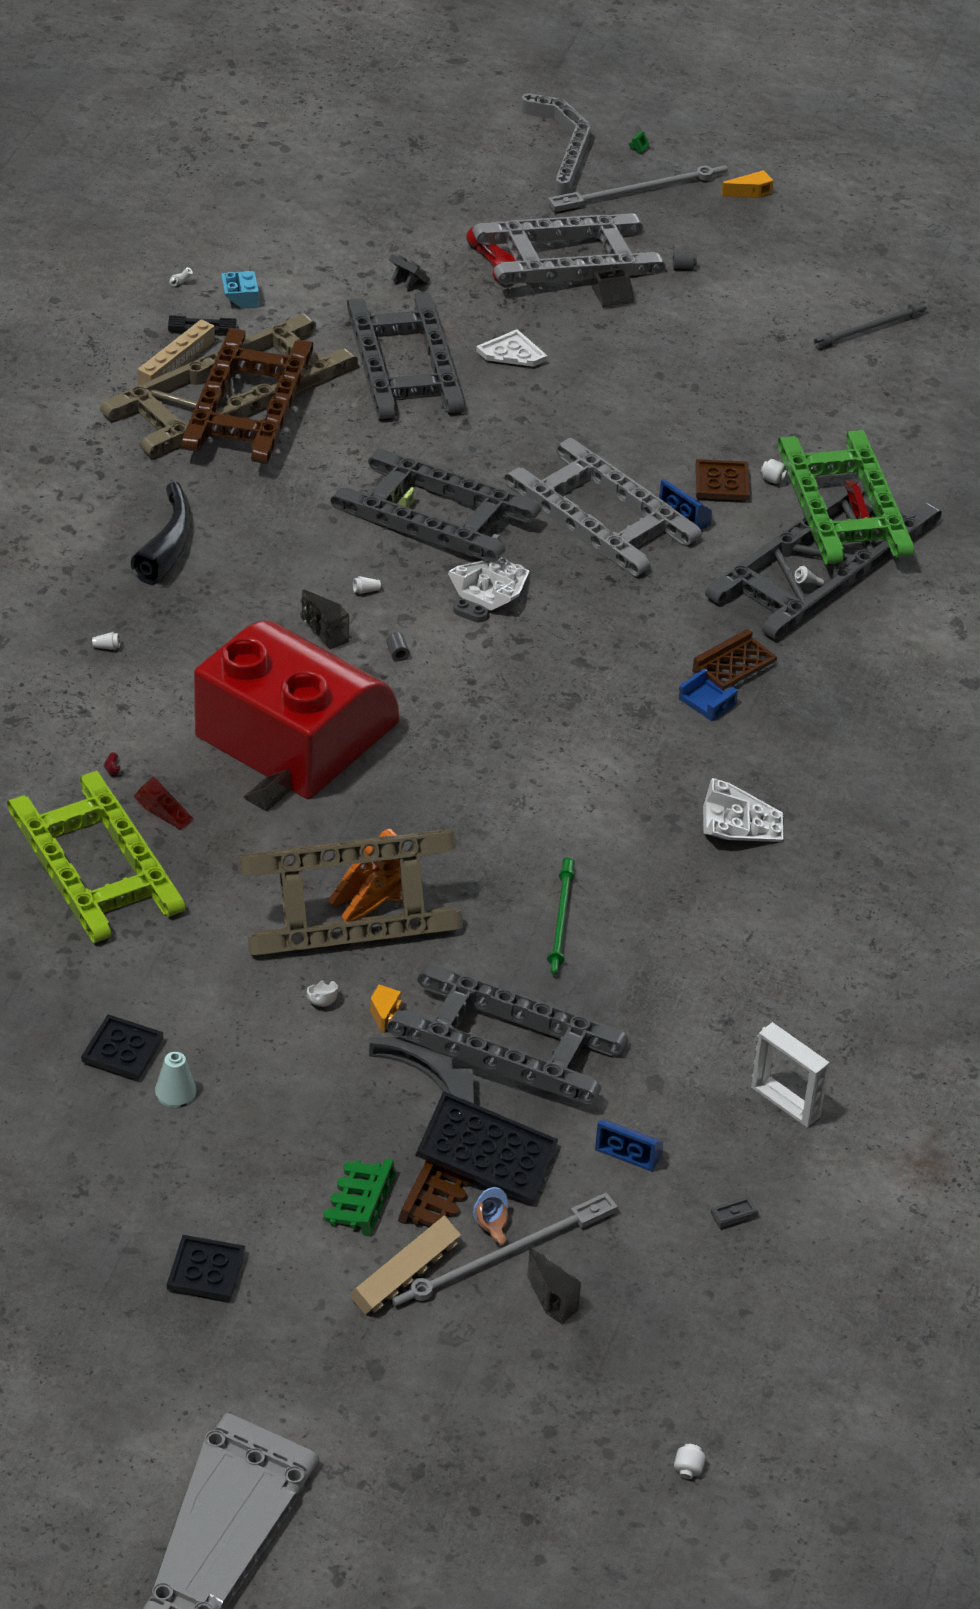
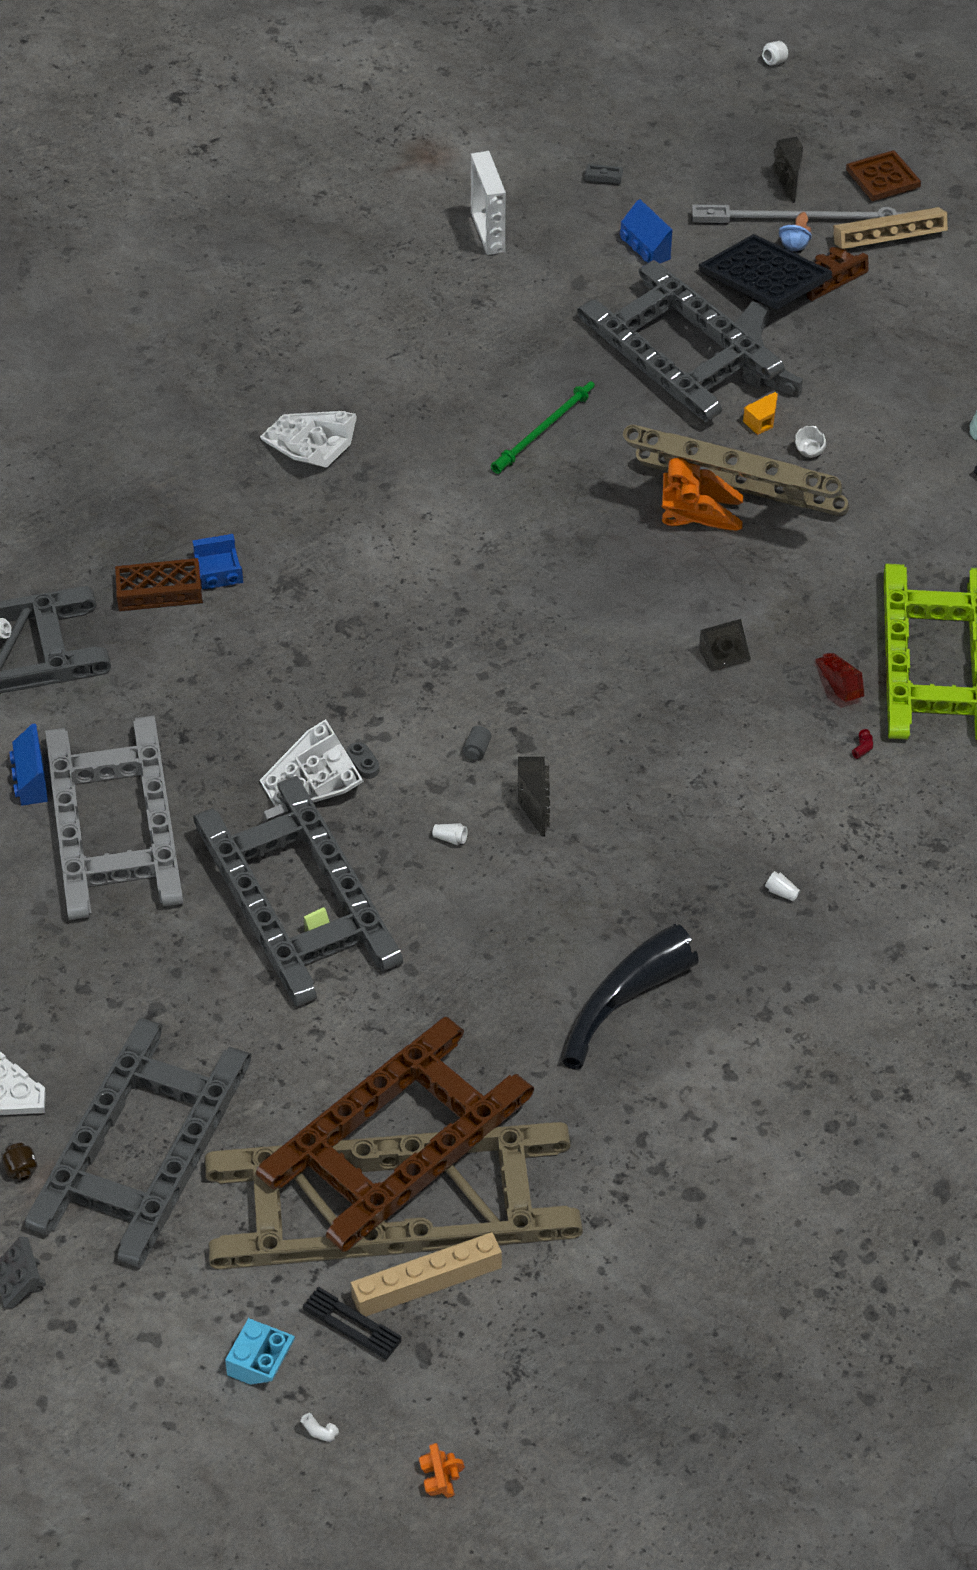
camera: 145 degrees left, 5 degrees up
(98, 284) = (443, 1467): none -> orange hips
(289, 706) = (649, 681): red piece -> none
(366, 1207) = (882, 281): green fence -> none
(459, 1342) = (883, 175): none -> reddish brown plate
(463, 319) = (19, 1161): none -> dark brown head

